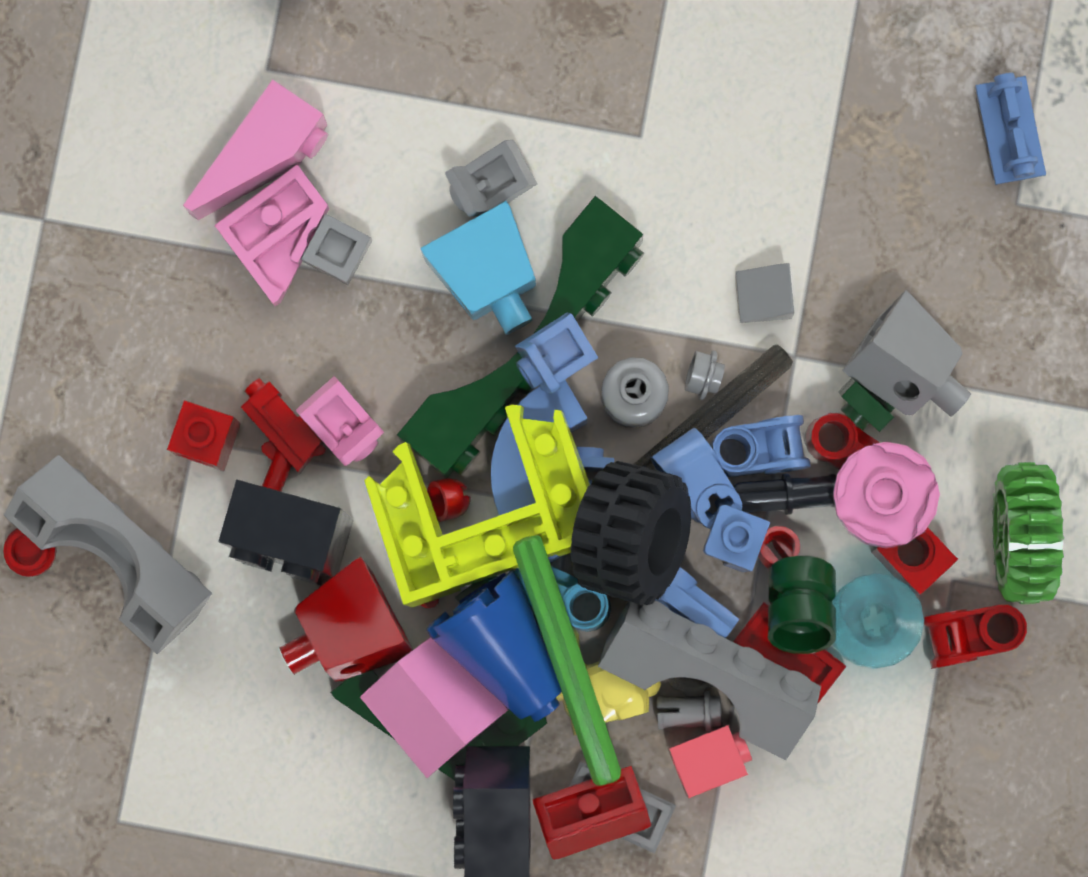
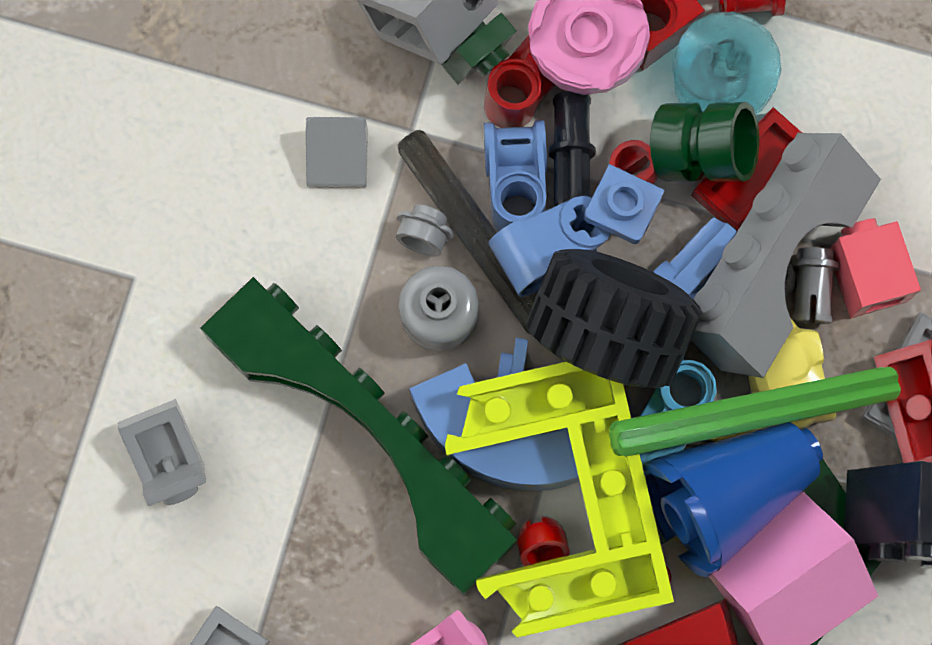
camera: 90 degrees left, 5 degrees down
(485, 267) = (268, 470): medium azure torso -> none
(554, 354) = (387, 390): medium blue bracket -> none

